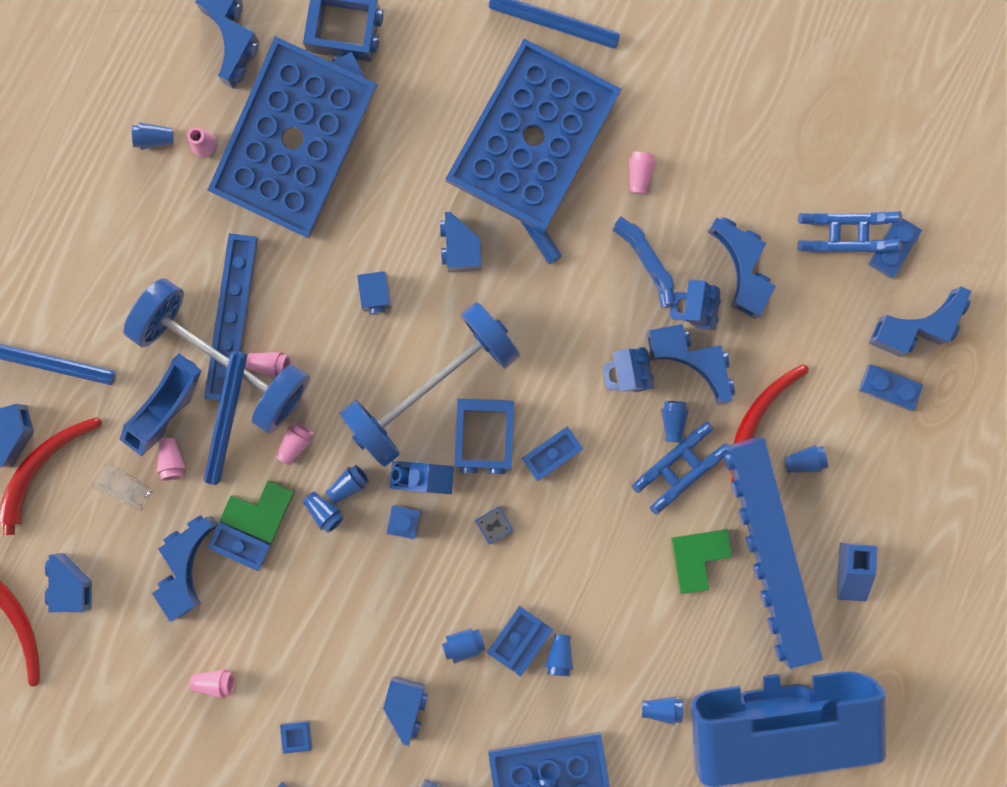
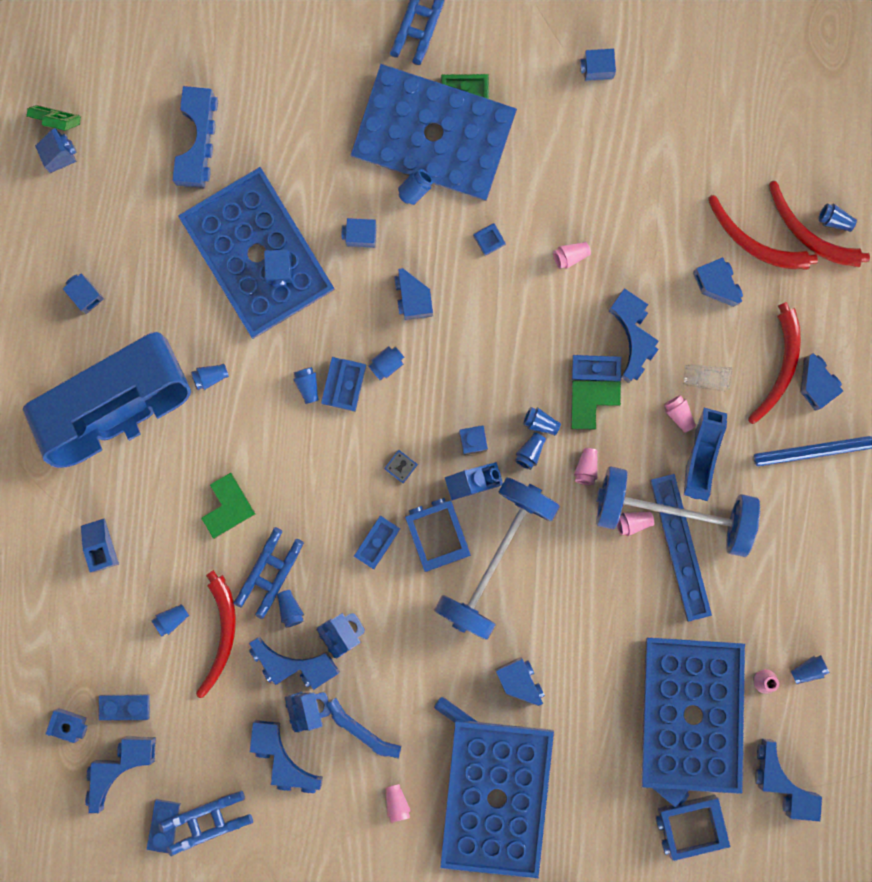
camera: 160 degrees right, 0 degrees up
(225, 417) = (649, 465): blue axle -> none
(374, 292) = (573, 614): blue brick -> none
(773, 552) = (170, 535): blue brick -> none
(949, 392) = (76, 723): none -> blue brick

